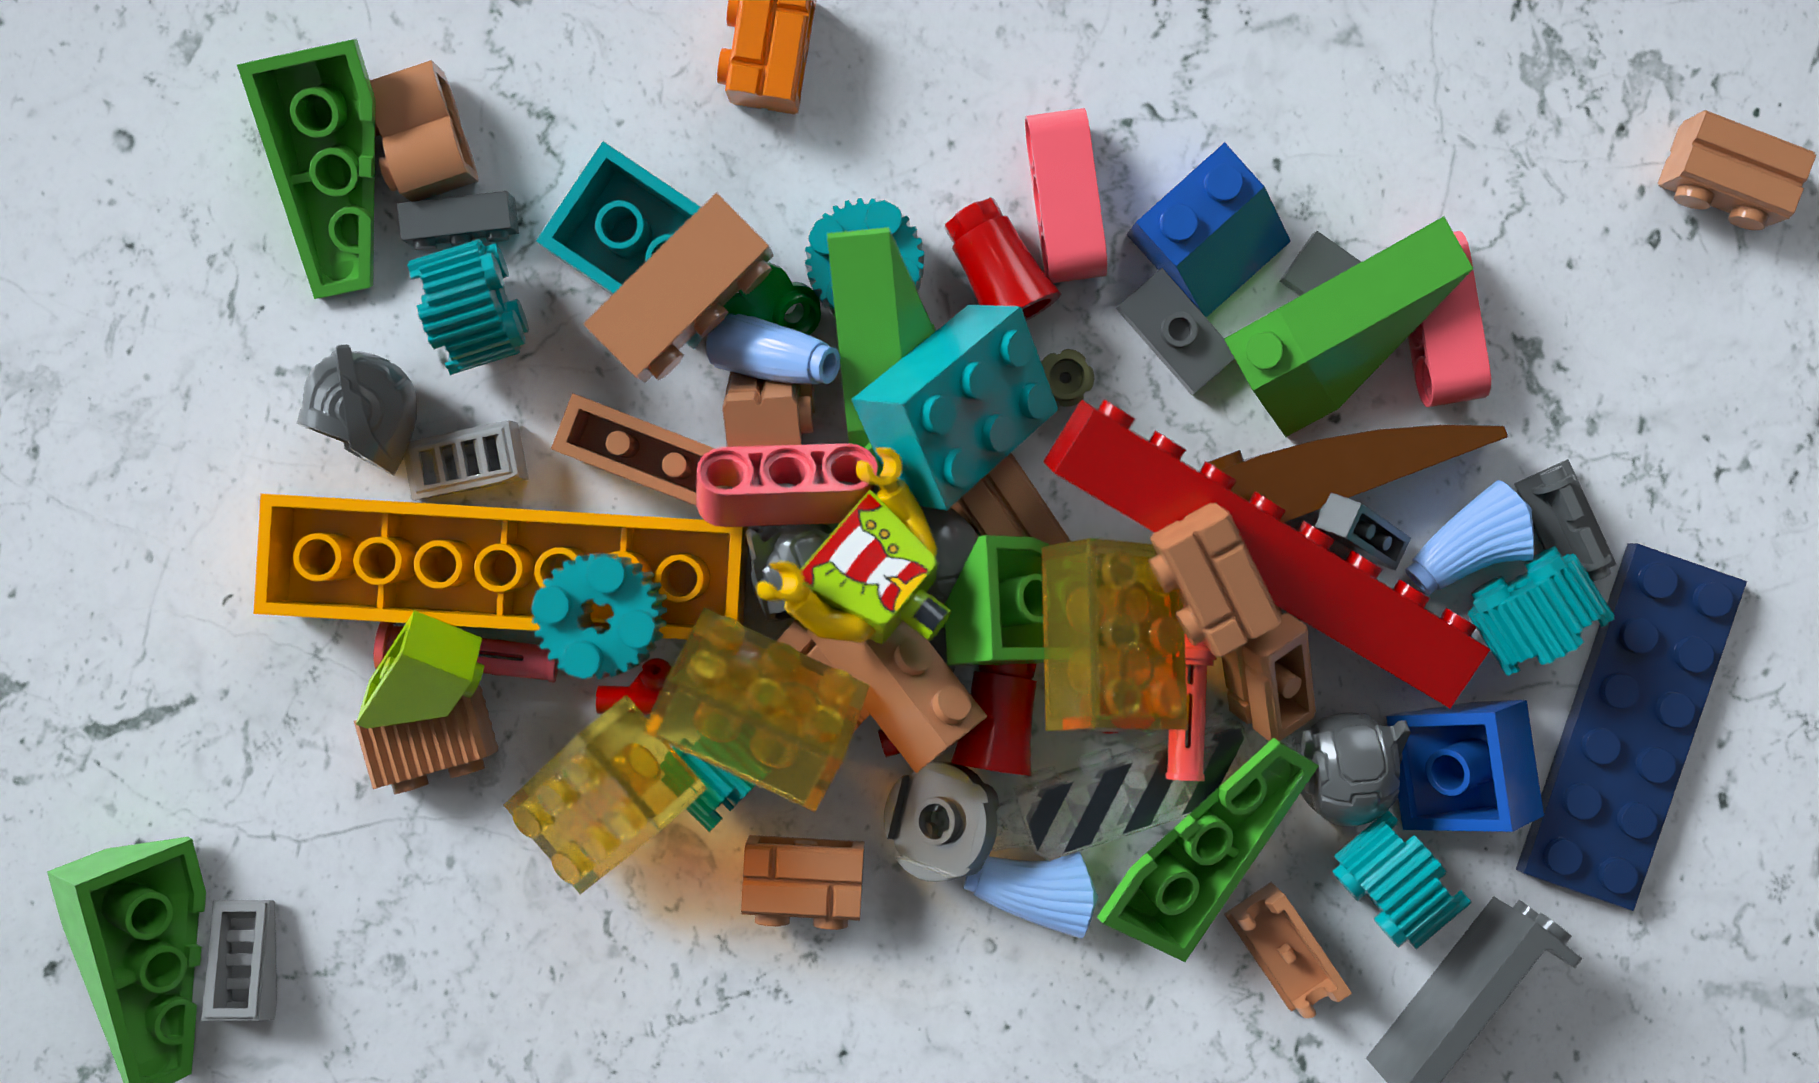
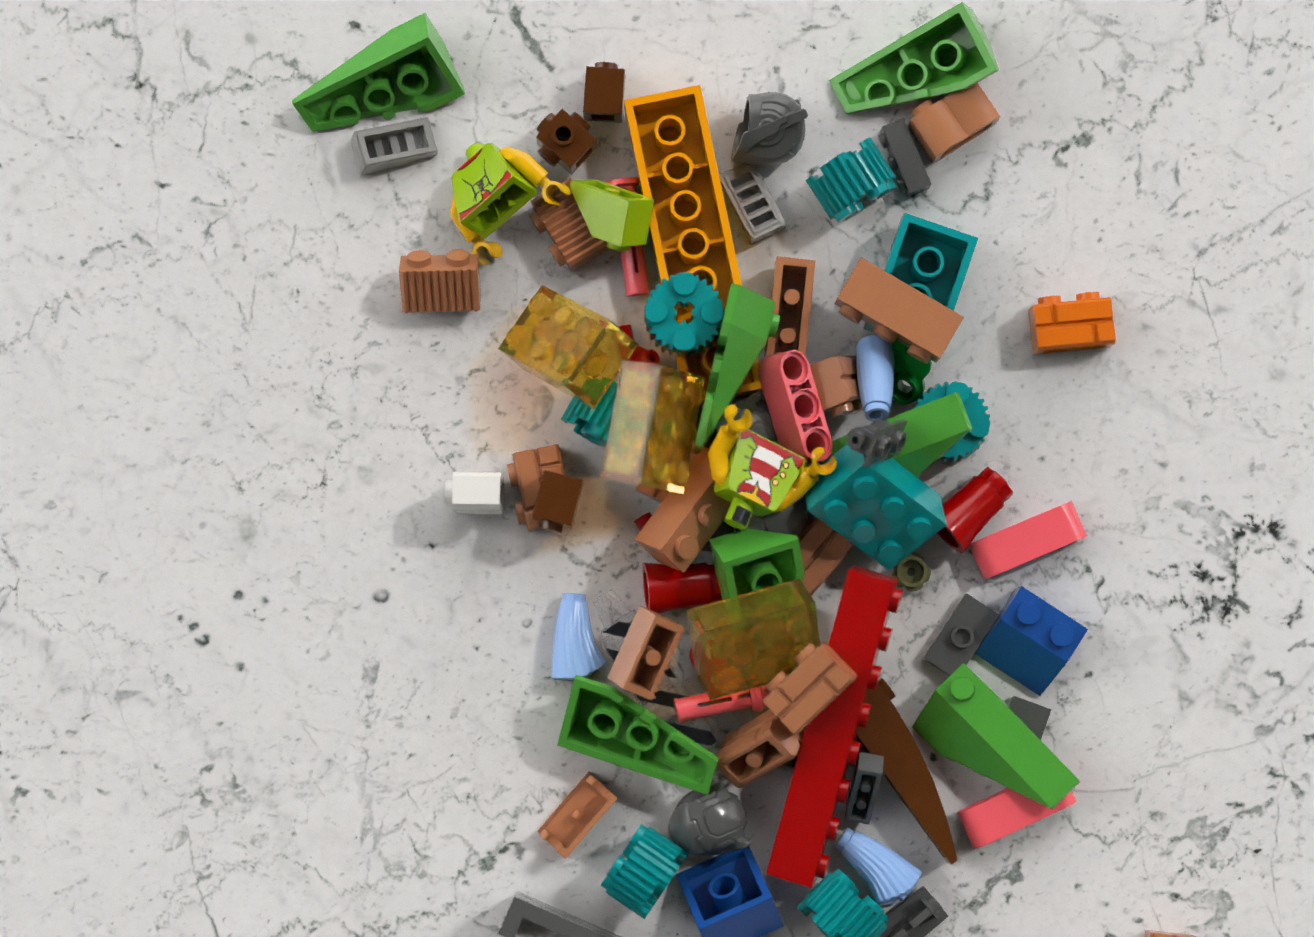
camera: 75 degrees right, 5 degrees down
(242, 640) = (604, 93): none -> reddish brown brick
(297, 712) = (568, 153): none -> reddish brown brick
(340, 841) = (492, 189): none -> lime torso
(459, 951) = (440, 282): none -> nougat brick
(660, 538) = (742, 338): none -> bright green wedge
(785, 984) = (475, 492): none -> white brick
(830, 873) = (557, 501): none -> reddish brown brick
(870, 375) = (878, 440): none -> dark grey hinge
(971, 829) = (599, 584): dark grey plate -> none
(1092, 805) = (646, 653): none -> nougat brick

